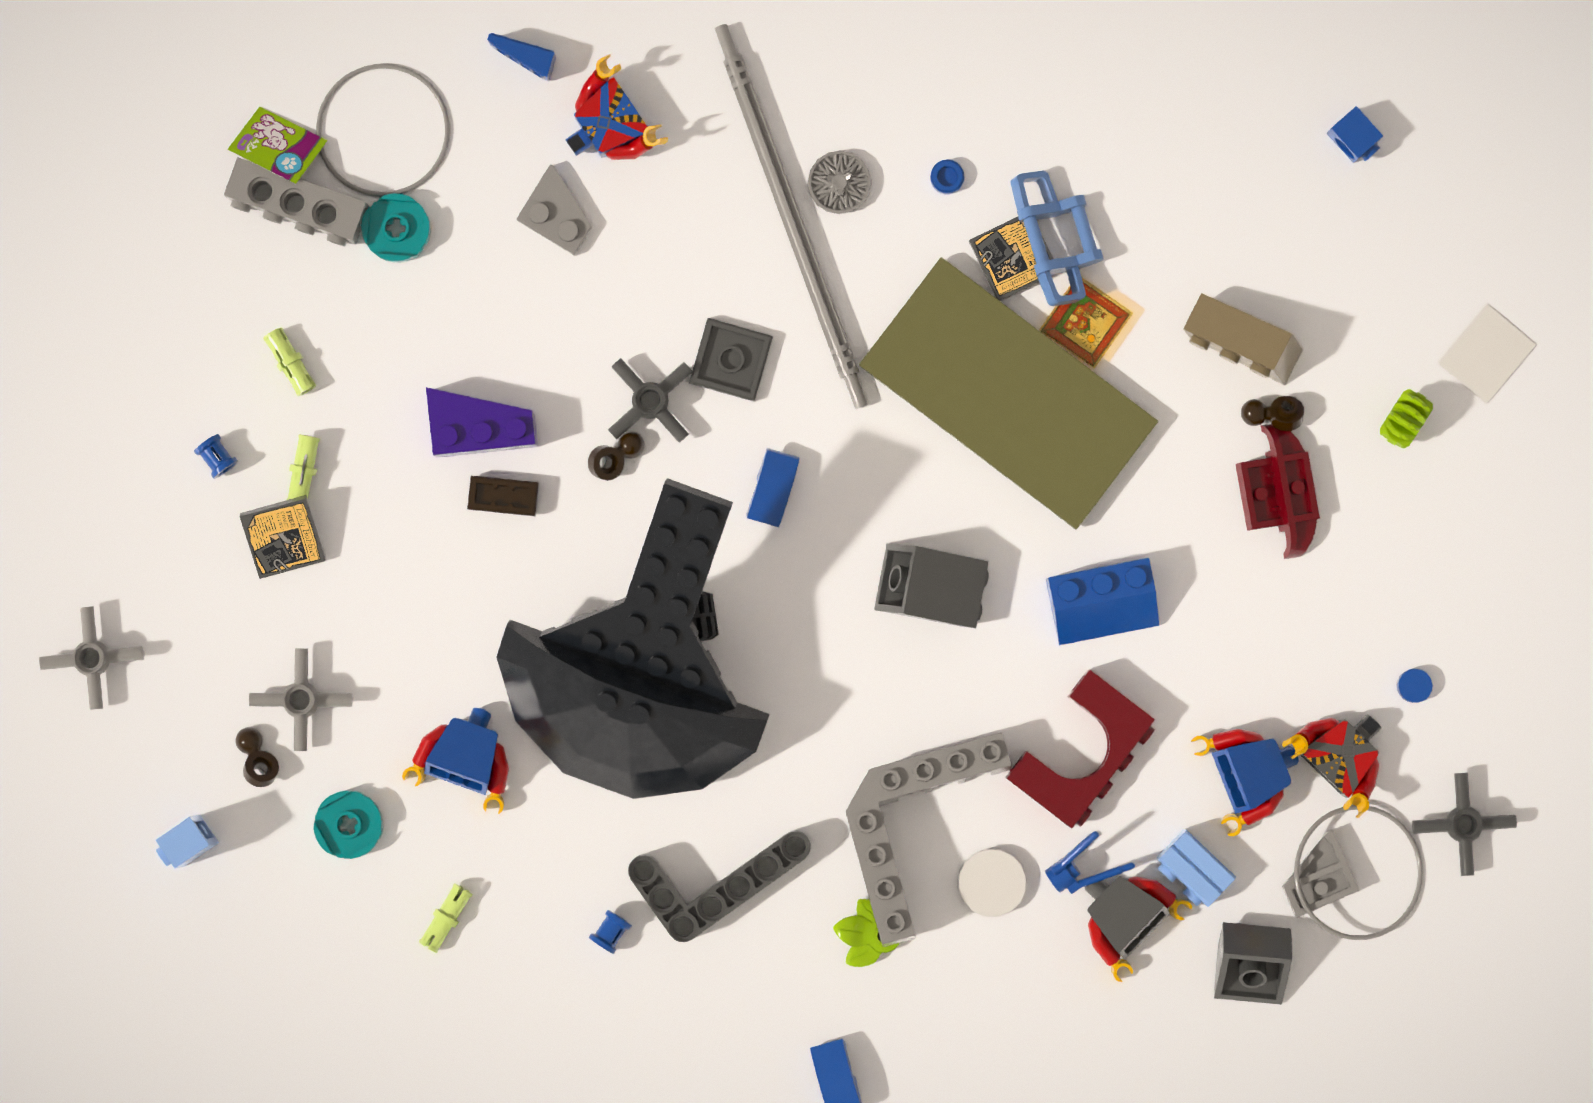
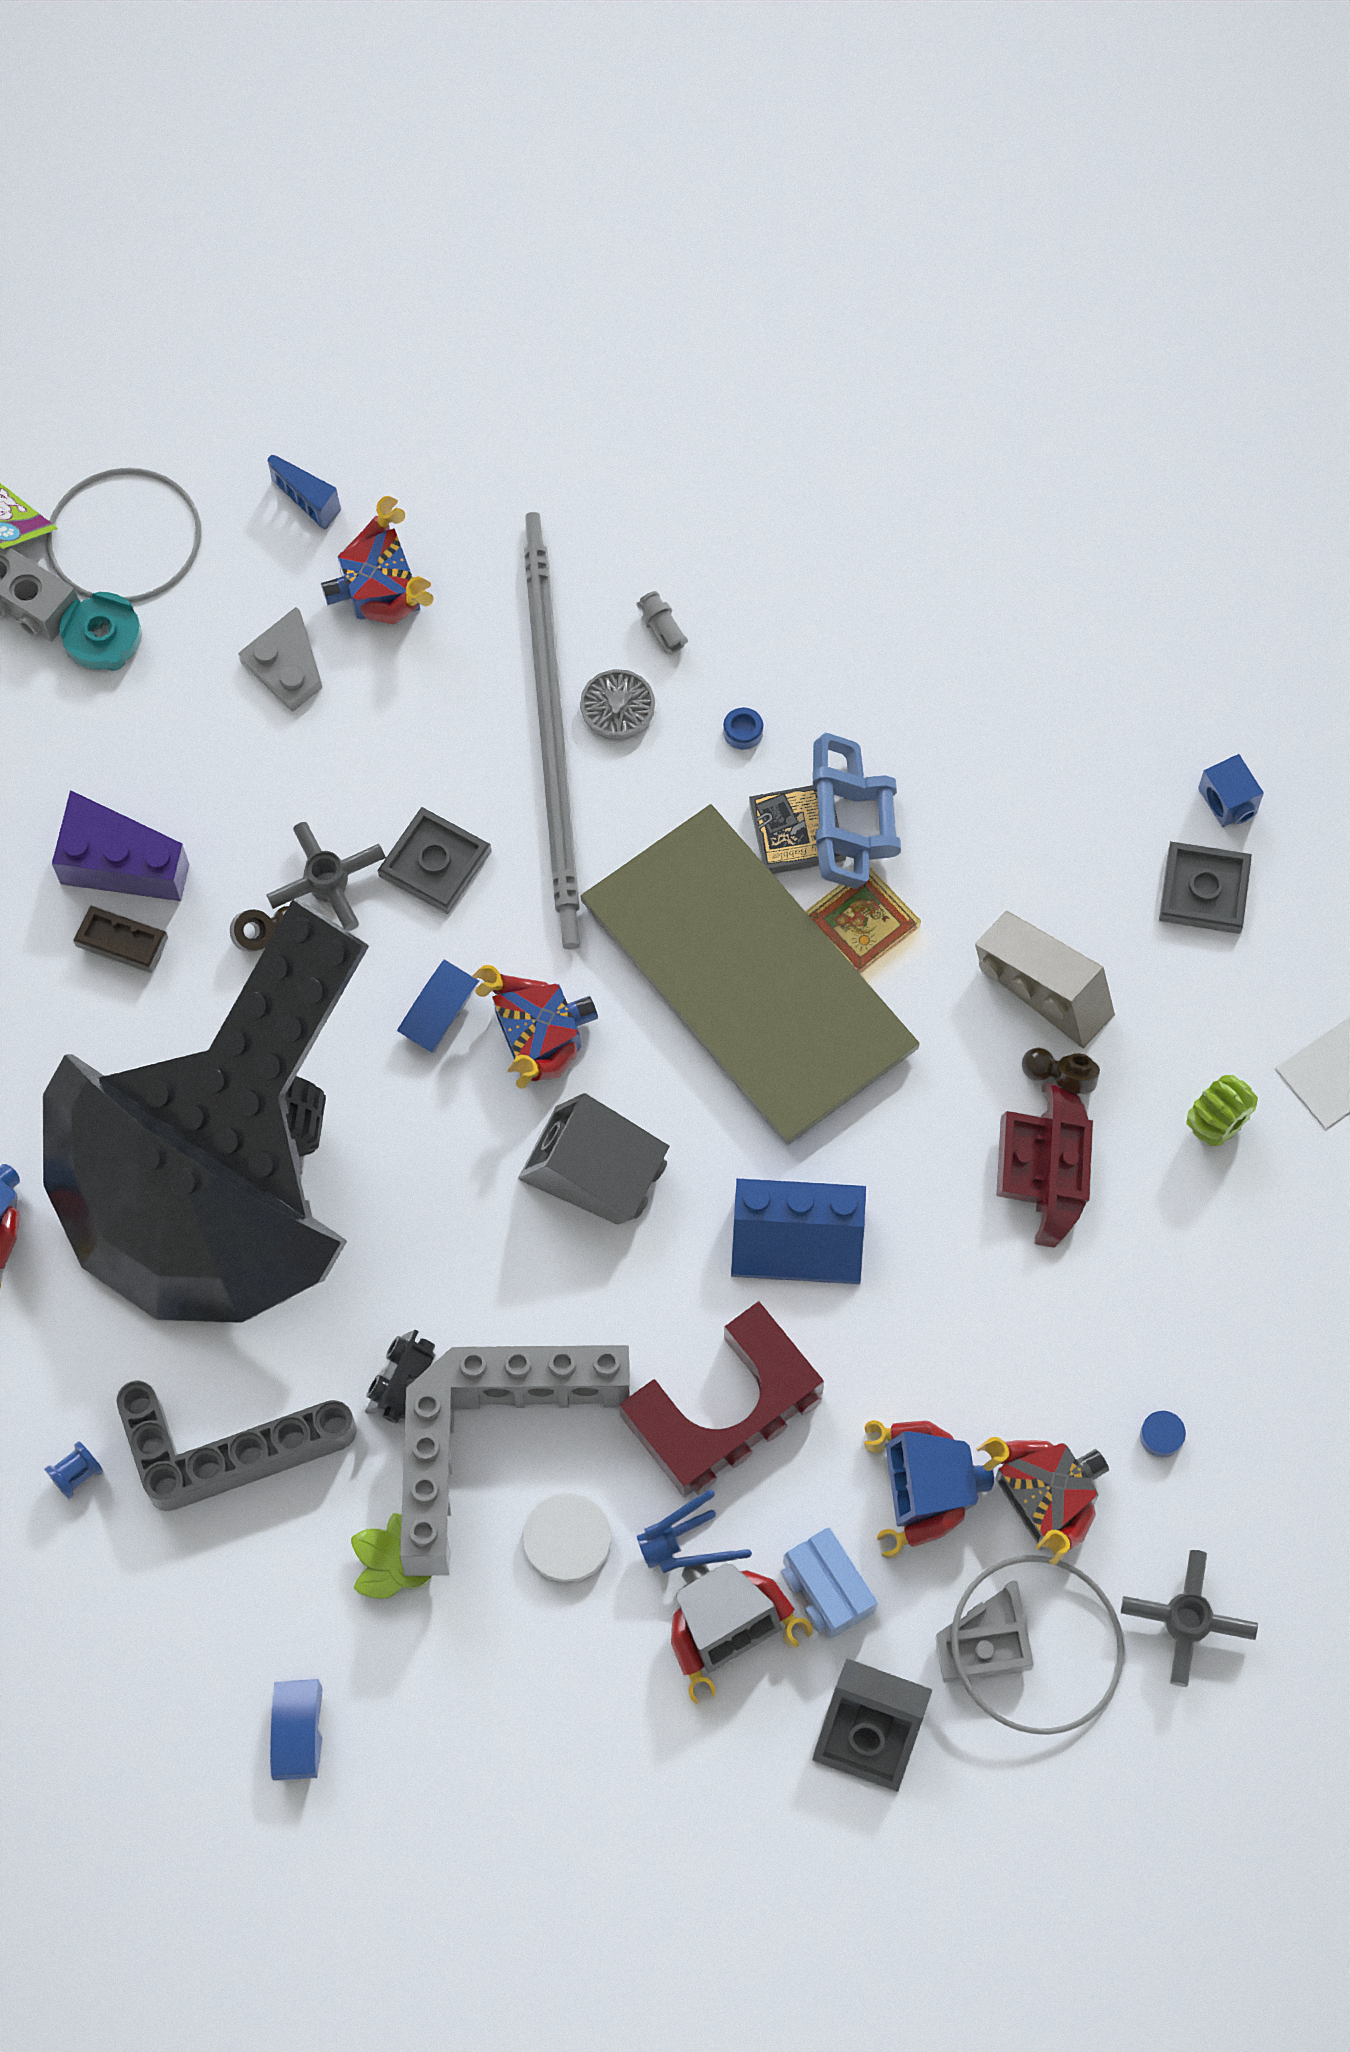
camera: 20 degrees right, 20 degrees down
(831, 778) = (405, 1359): none -> black hinge
(855, 99) = (659, 618): none -> light grey pin
(856, 485) = (536, 1023): none -> torso
(1351, 222) = (1205, 887): none -> dark grey tile

